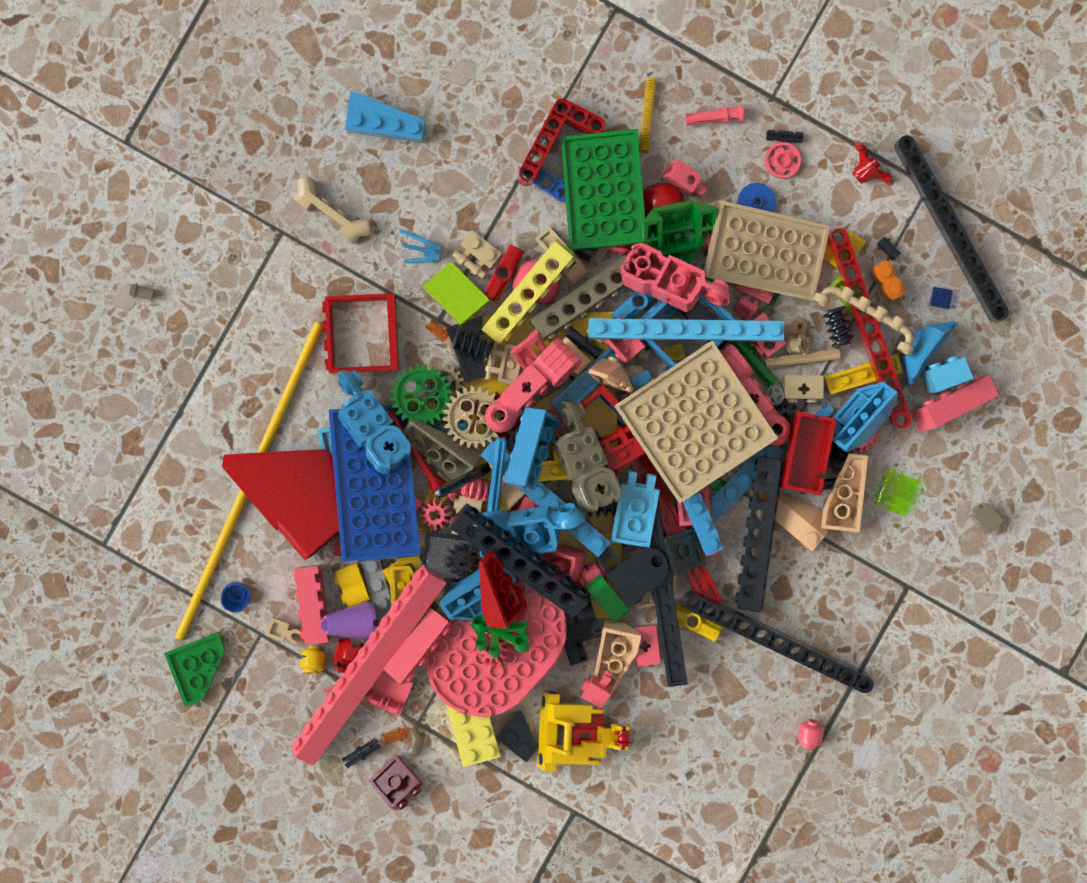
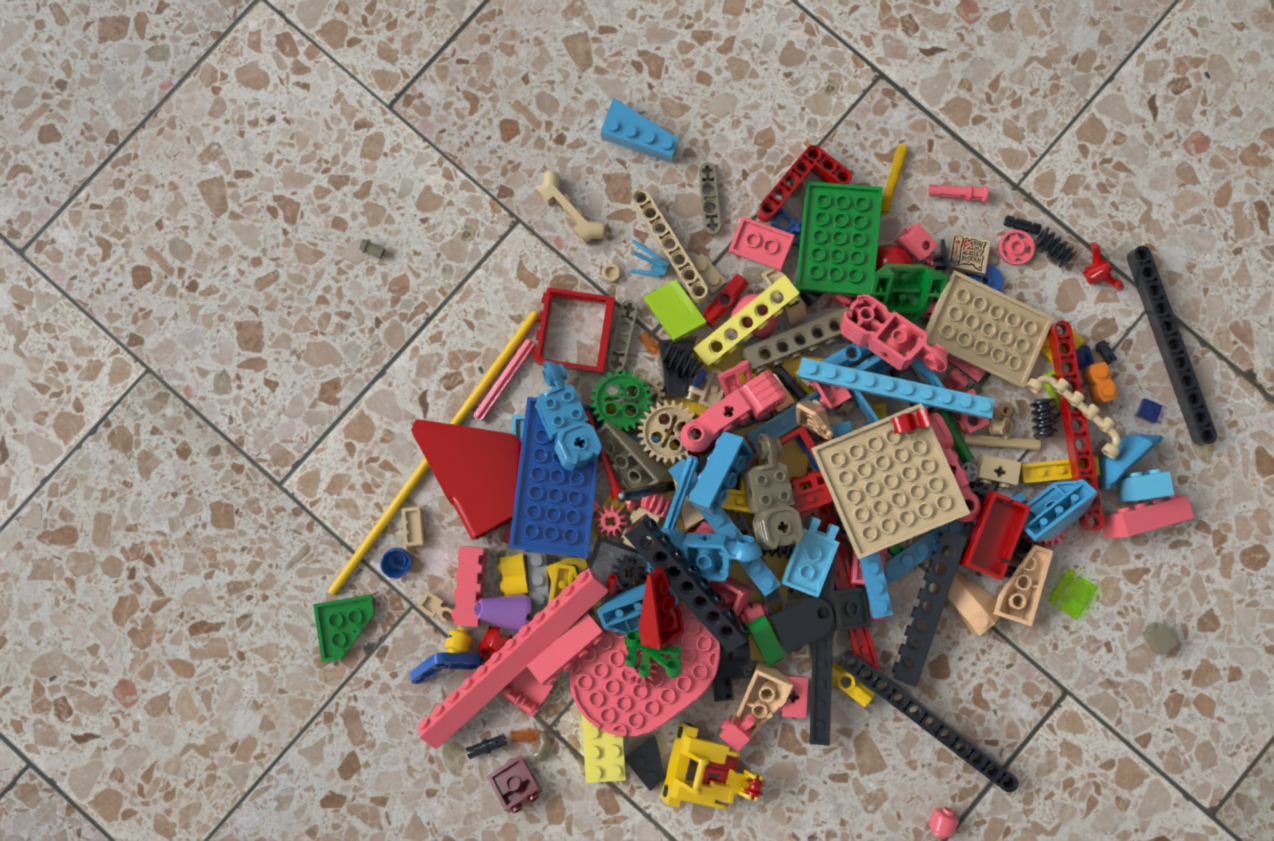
camera: 15 degrees right, 5 degrees down
(244, 558) = (413, 526): none -> tan plate
(301, 681) = (441, 661): none -> blue beam
(302, 396) = (504, 379): none -> coral axle
(385, 267) = (610, 273): none -> tan tile
(410, 329) = (620, 336): none -> dark tan beam
(433, 222) = (671, 254): none -> tan beam
(449, 577) = (612, 584): none -> red arm
(470, 172) = (709, 199): none -> dark tan beam
(493, 358) = (699, 379): none -> clear blue tile
(529, 208) = (761, 243): none -> coral tile
(704, 361) = (909, 421): none -> red leg
(710, 188) = (943, 258): none -> black piece
(735, 178) = (968, 254): none -> tan tile
(819, 153) = (1054, 247): none -> black piece
(866, 258) = (1084, 357): none -> clear blue tile

